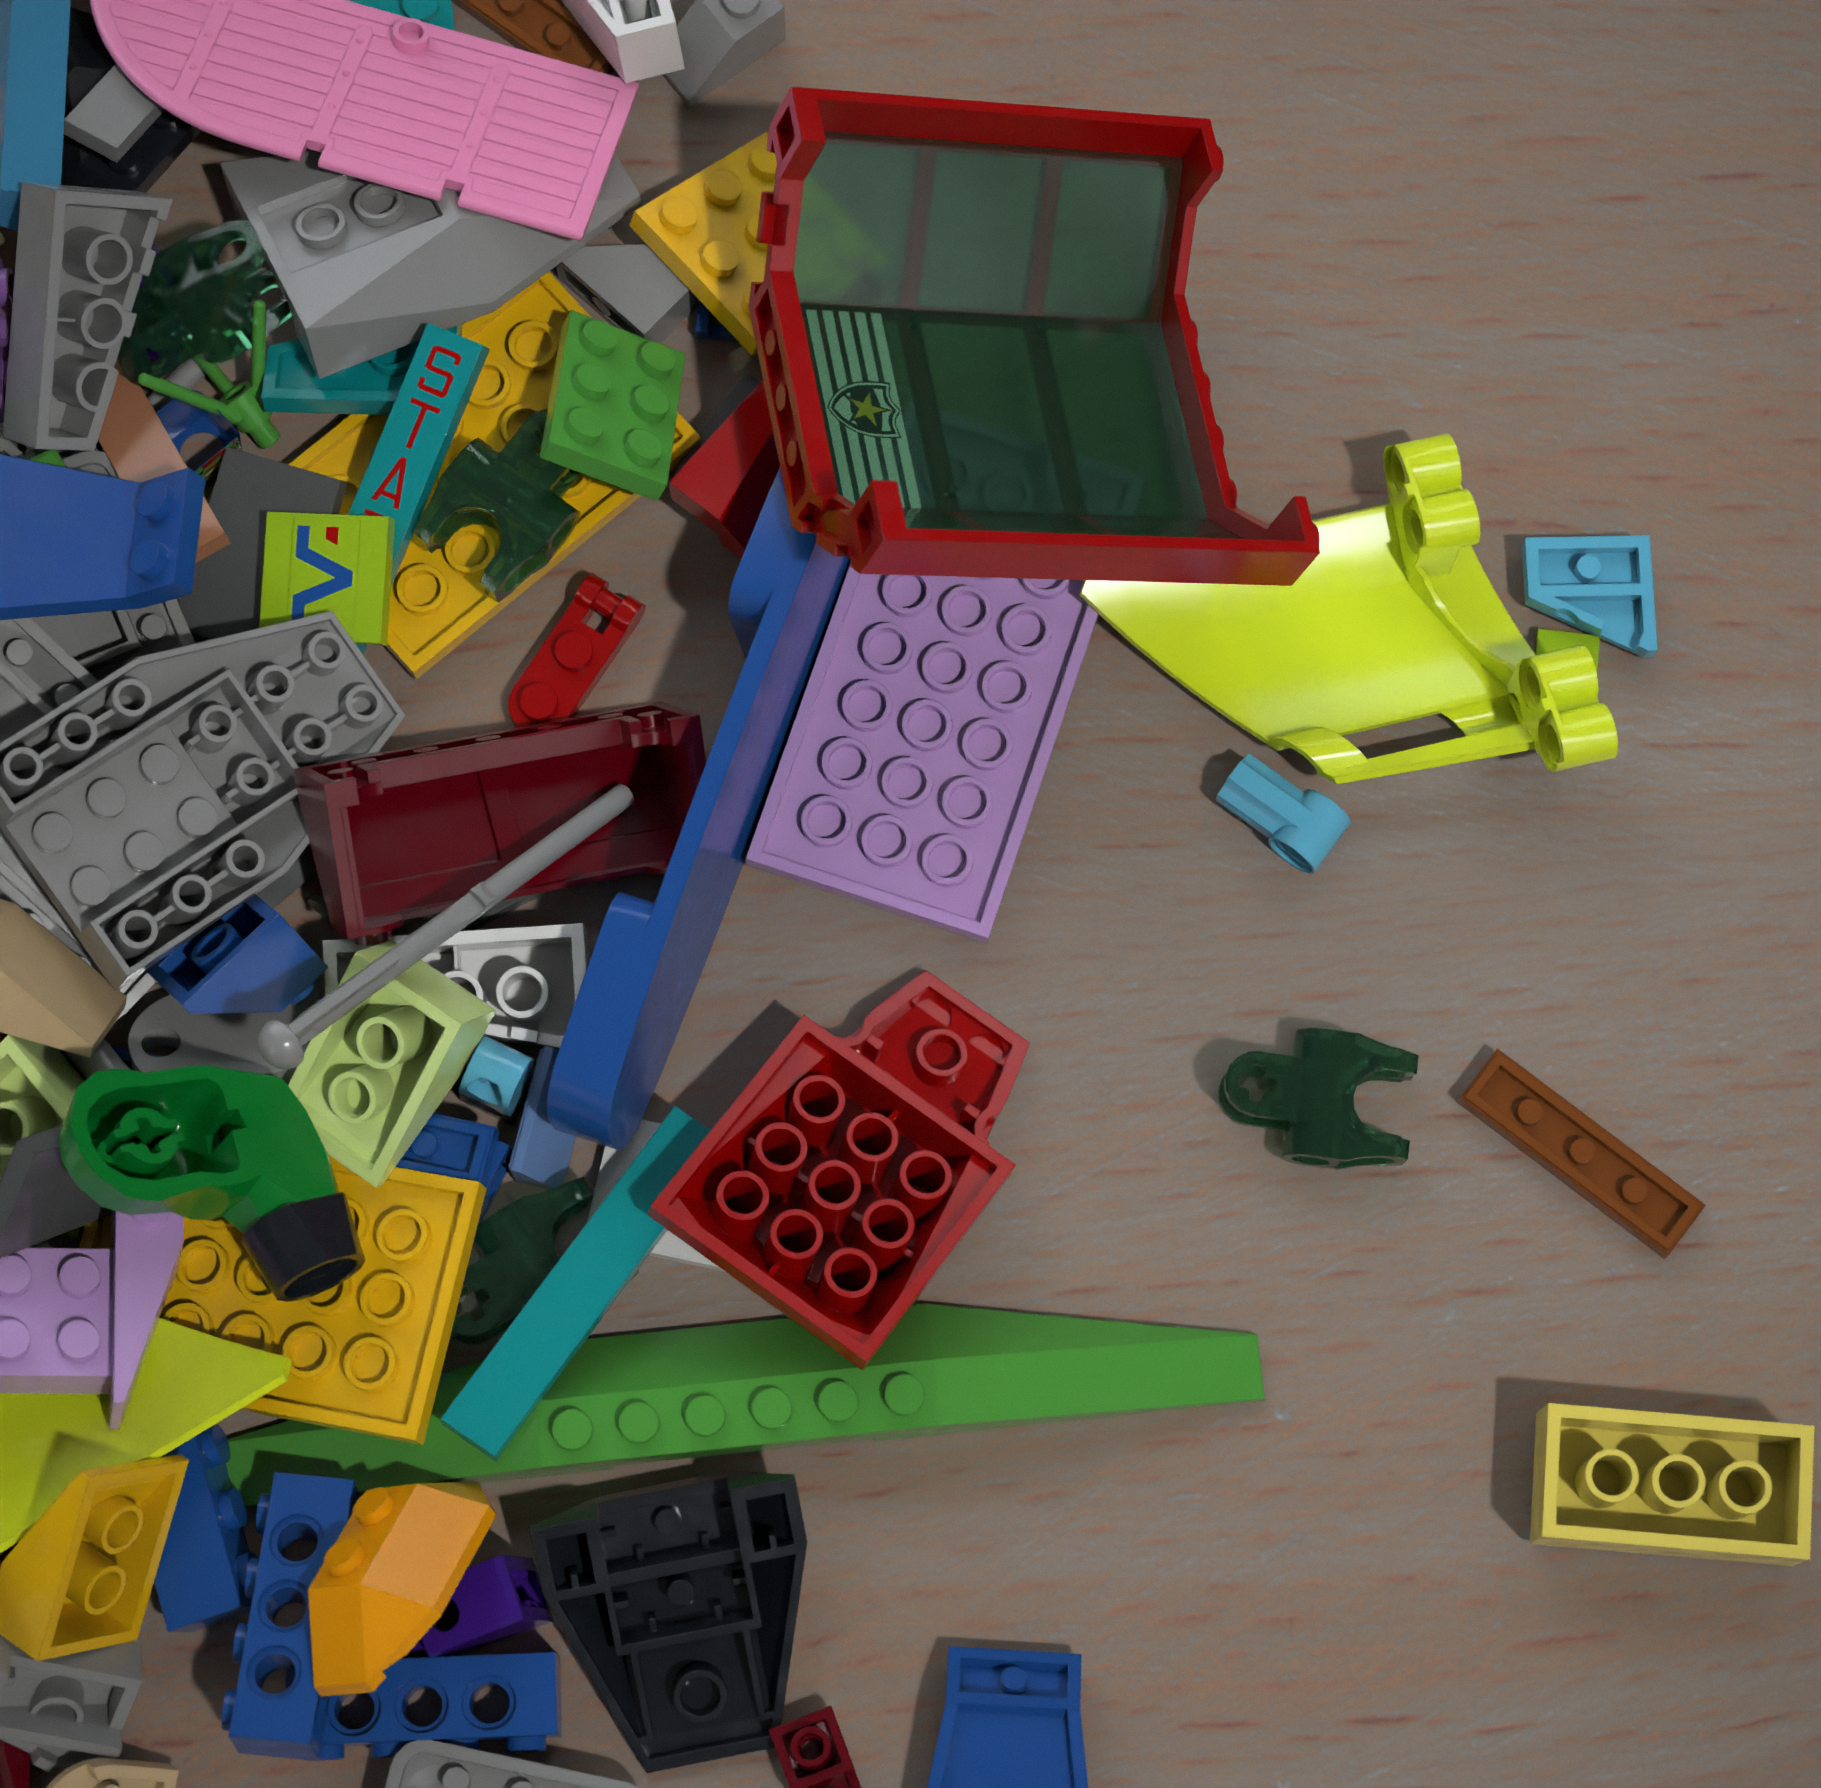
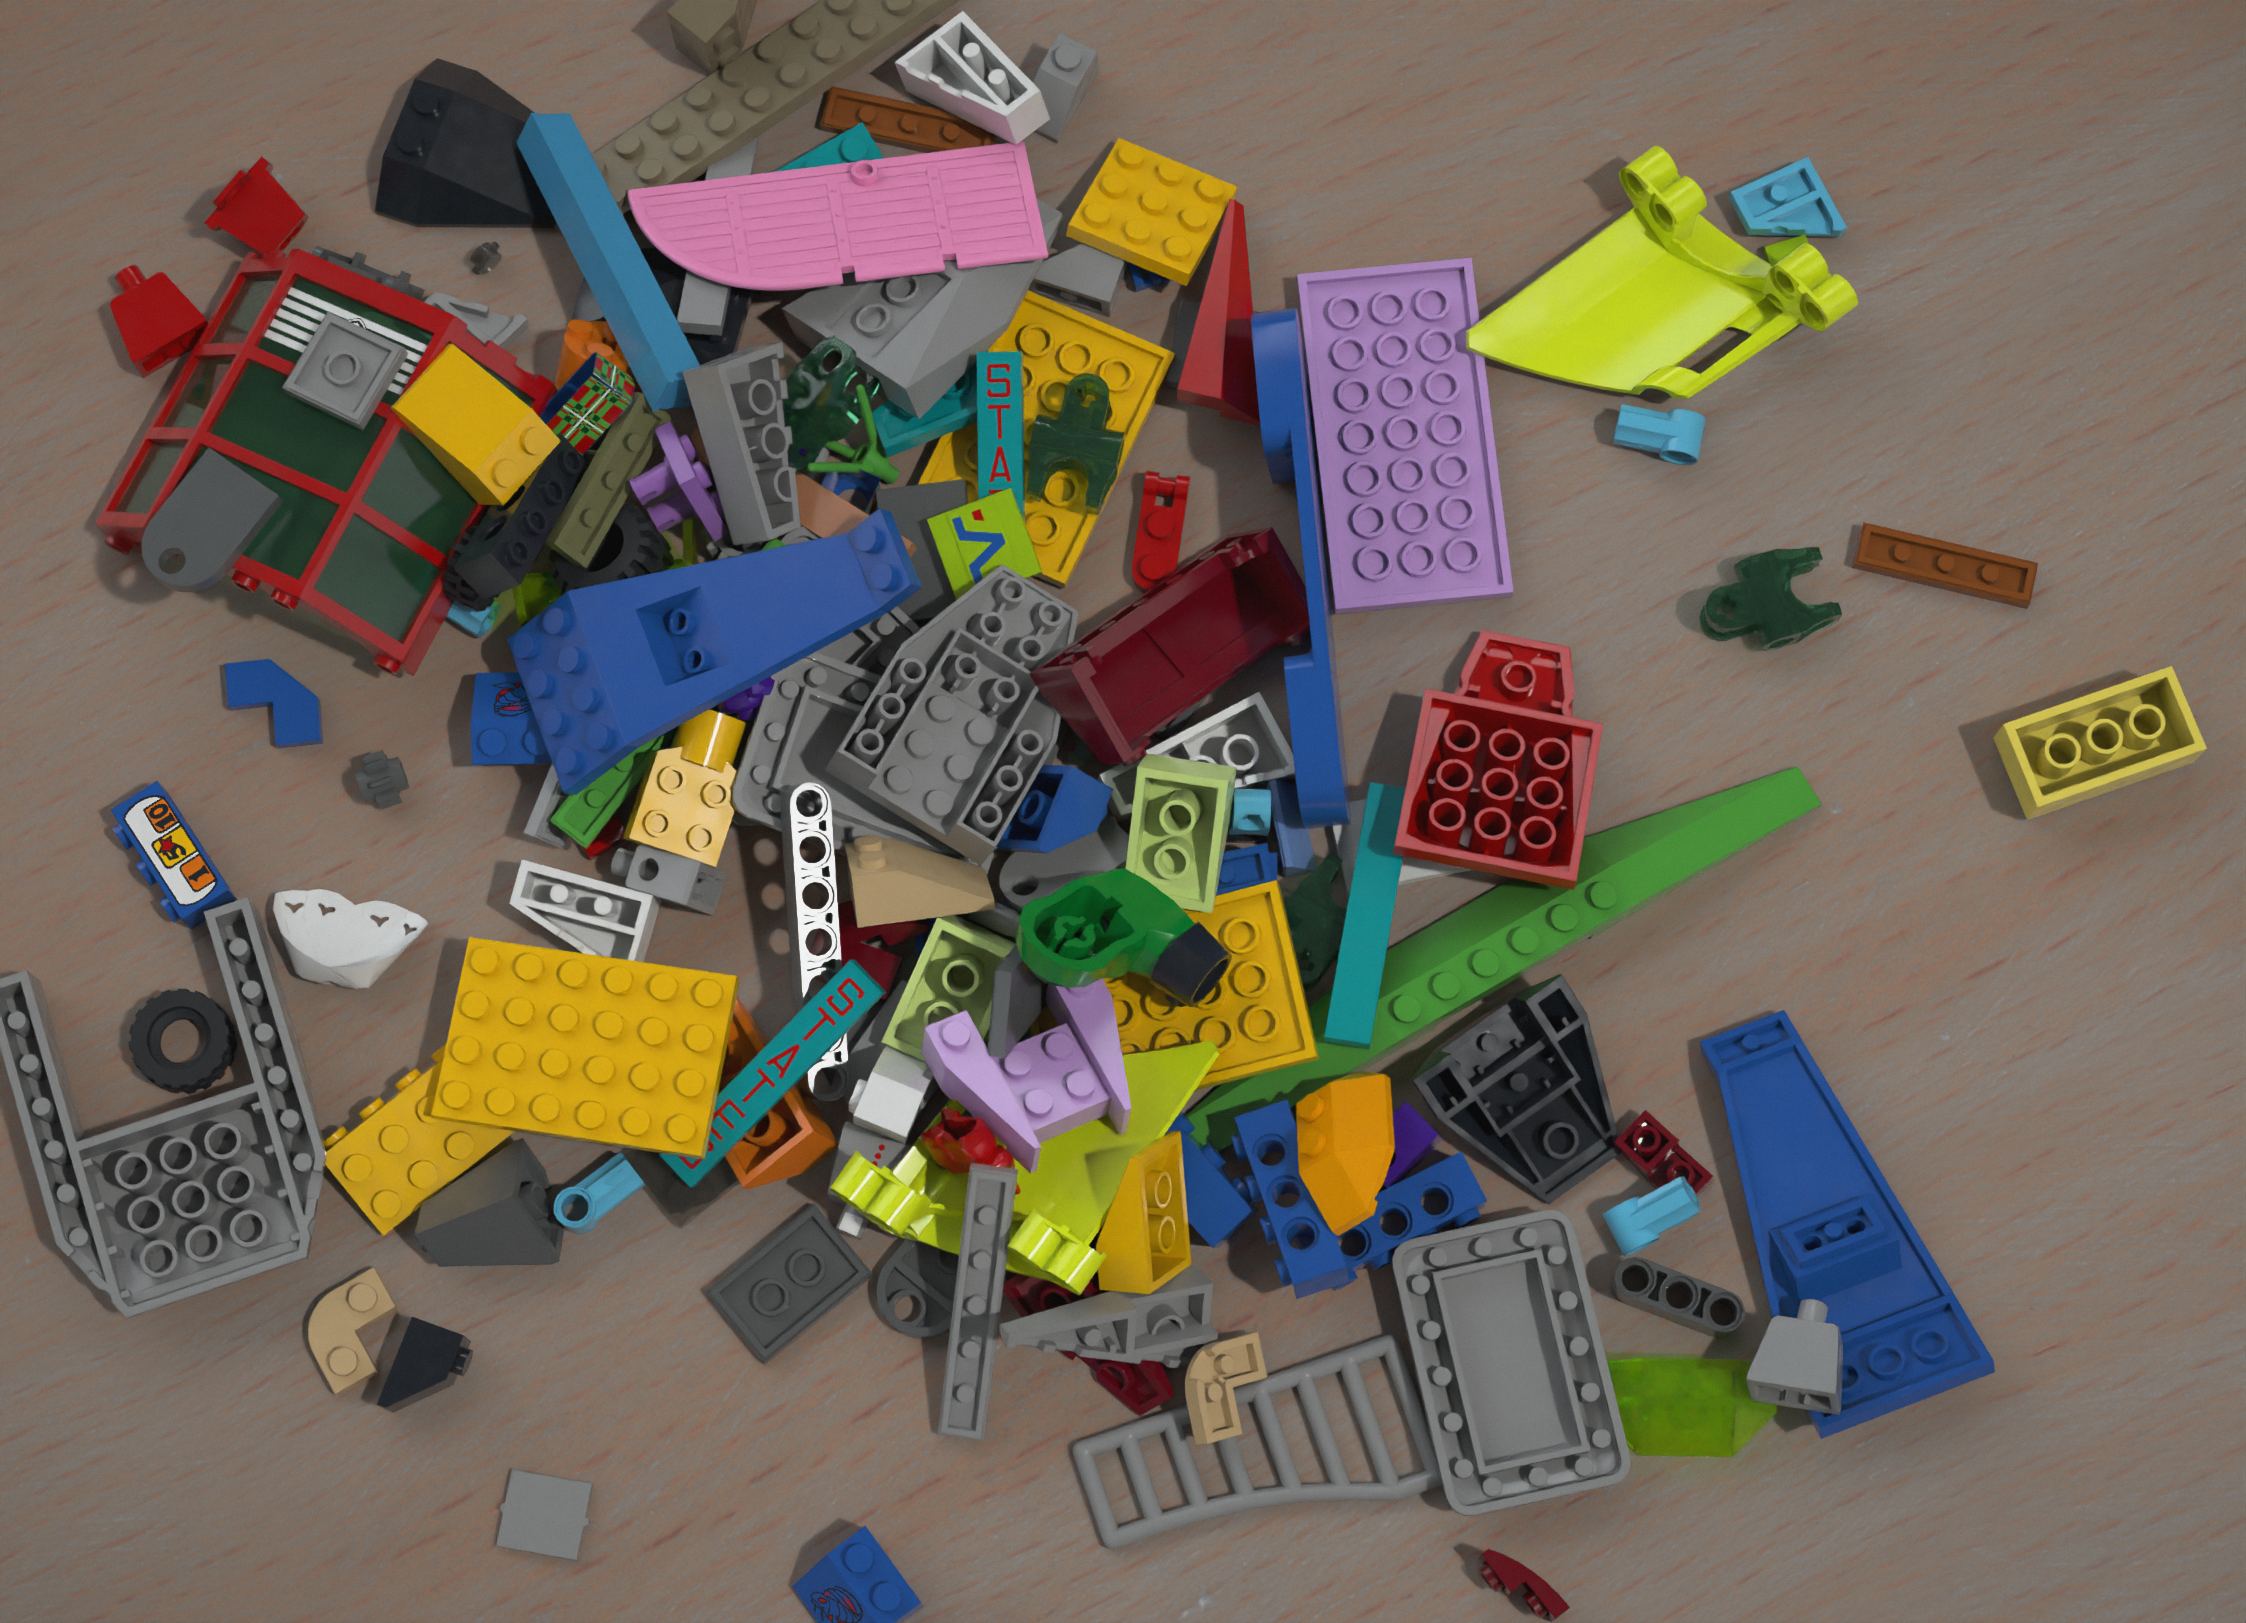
camera: 20 degrees left, 0 degrees up
(282, 1044) = (1132, 836): light grey bar -> none
(613, 405) = (1116, 355): bright green plate -> none
(997, 345) = (1350, 215): clear green window -> none

